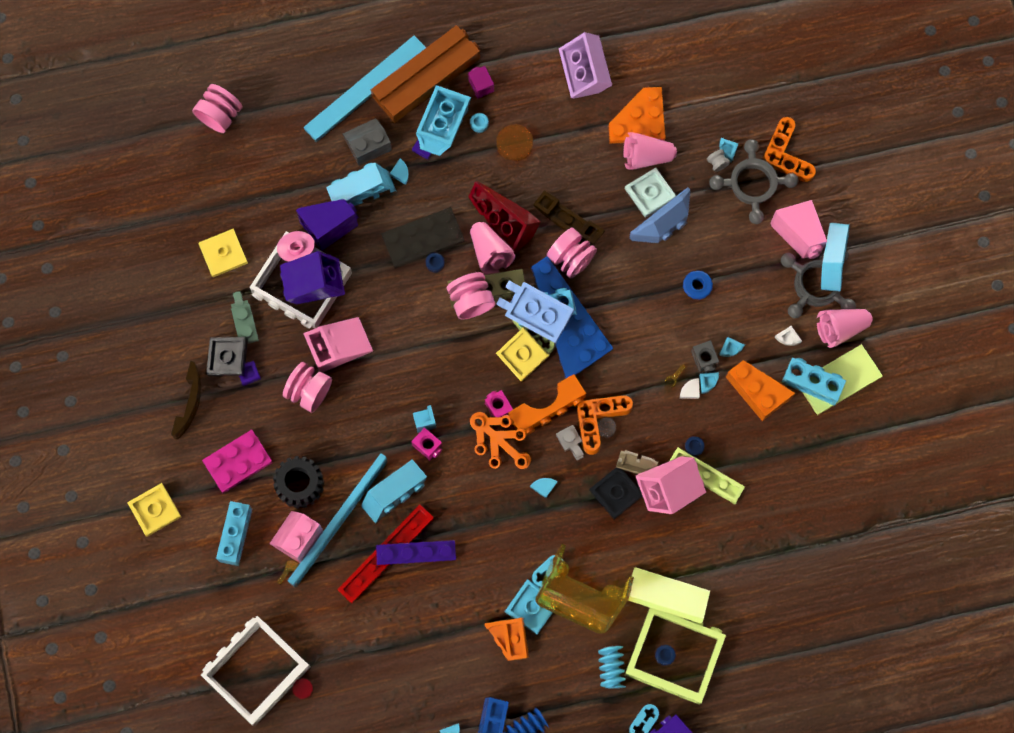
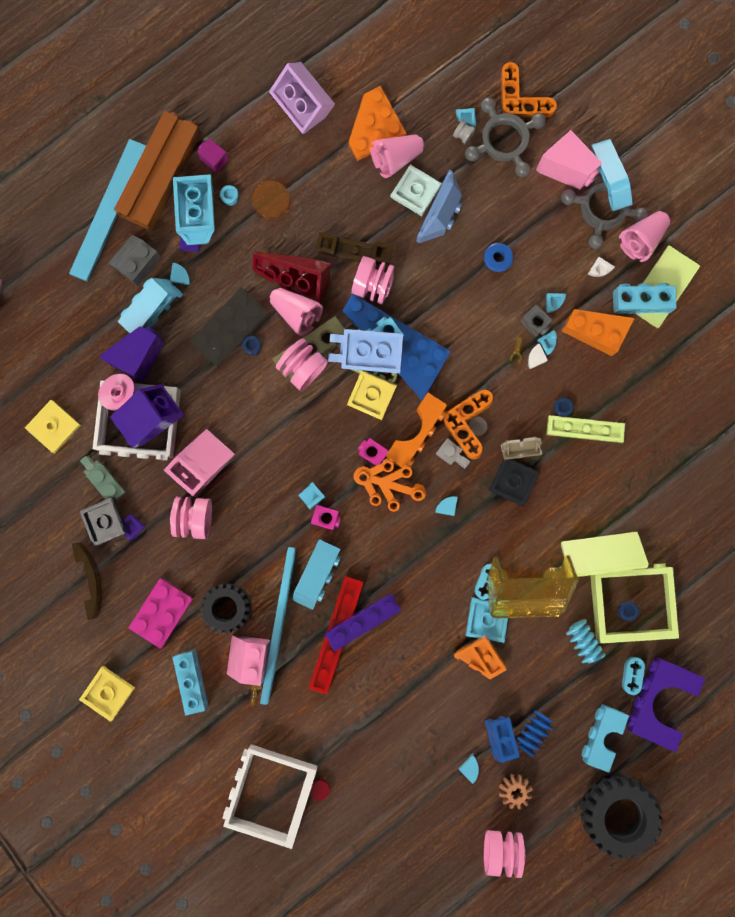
camera: 25 degrees left, 10 degrees up
(671, 485) = (562, 454): bright pink slope -> none

